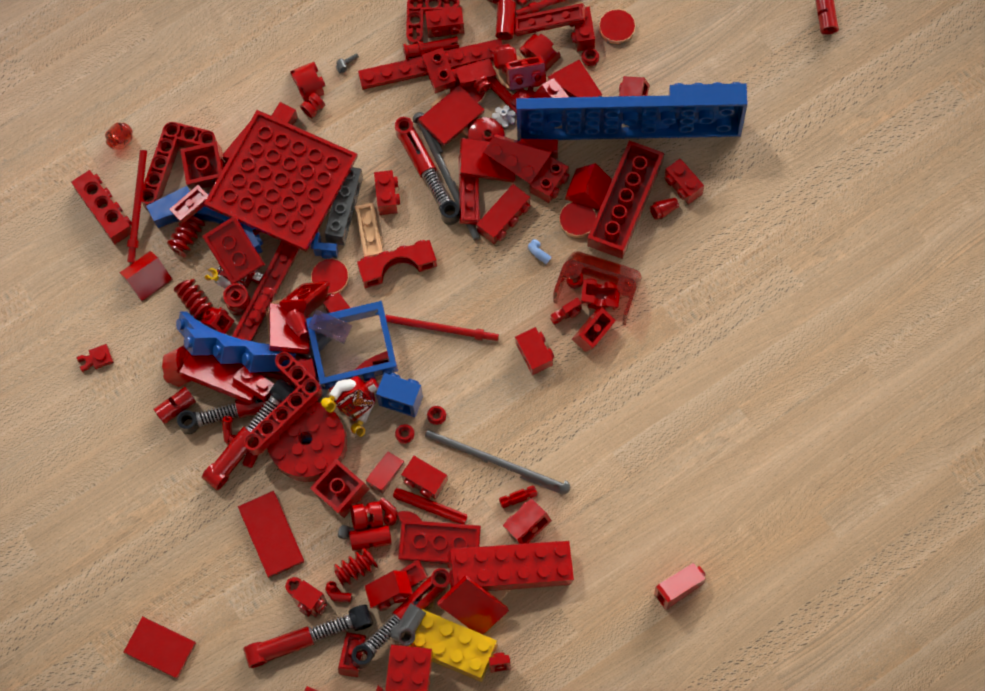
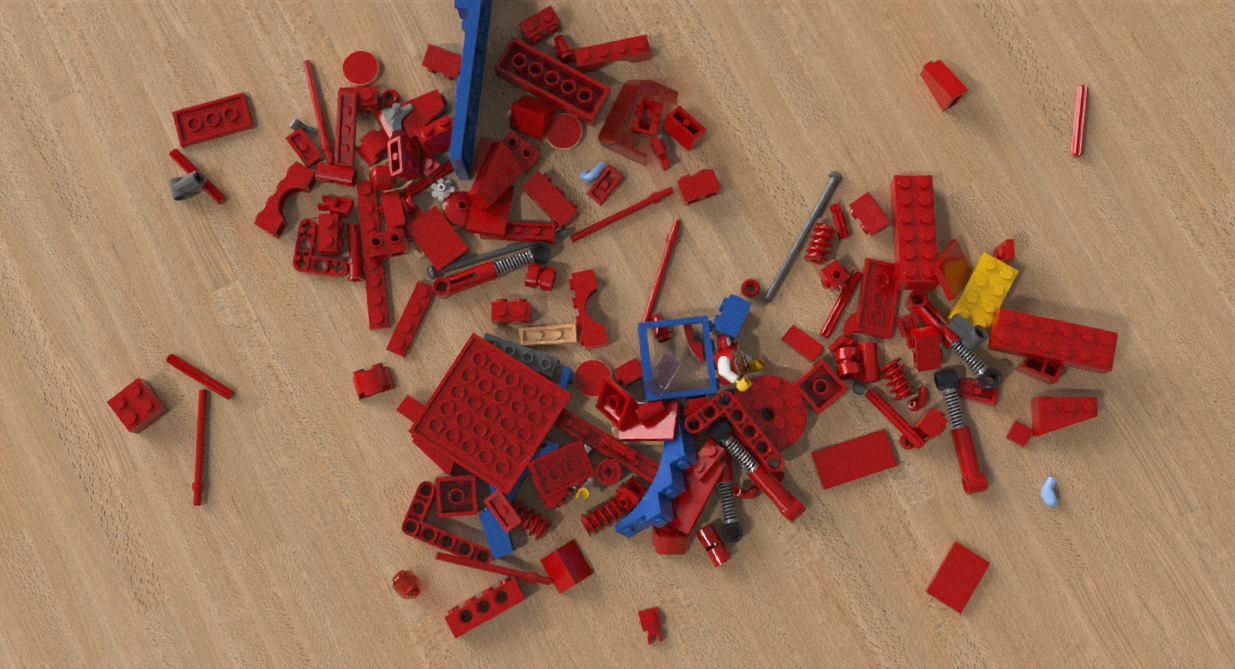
camera: 85 degrees left, 10 degrees up
(207, 256) = (556, 500): none -> red brick
(312, 105) = (402, 378): red wheel -> none
(316, 566) = (895, 418): none -> red axle
(341, 63) = (359, 345): dark grey hand -> none
(370, 105) = (411, 319): none -> red plate
(377, 333) = (661, 334): none -> red cone
(404, 428) = (765, 314): red plate -> none
(424, 212) = (540, 277): none -> red wheel
(424, 478) = (815, 305): red brick -> none
(458, 487) = (829, 273): none -> red brick
(474, 26) = (339, 205): none -> red plate
(489, 478) = (820, 243): none -> red piece
(519, 312) = (654, 198): none -> red bar
(529, 266) = (605, 184): none -> red slope
(563, 58) = (391, 118): none -> piece
(669, 263) = (630, 49): none -> red arch

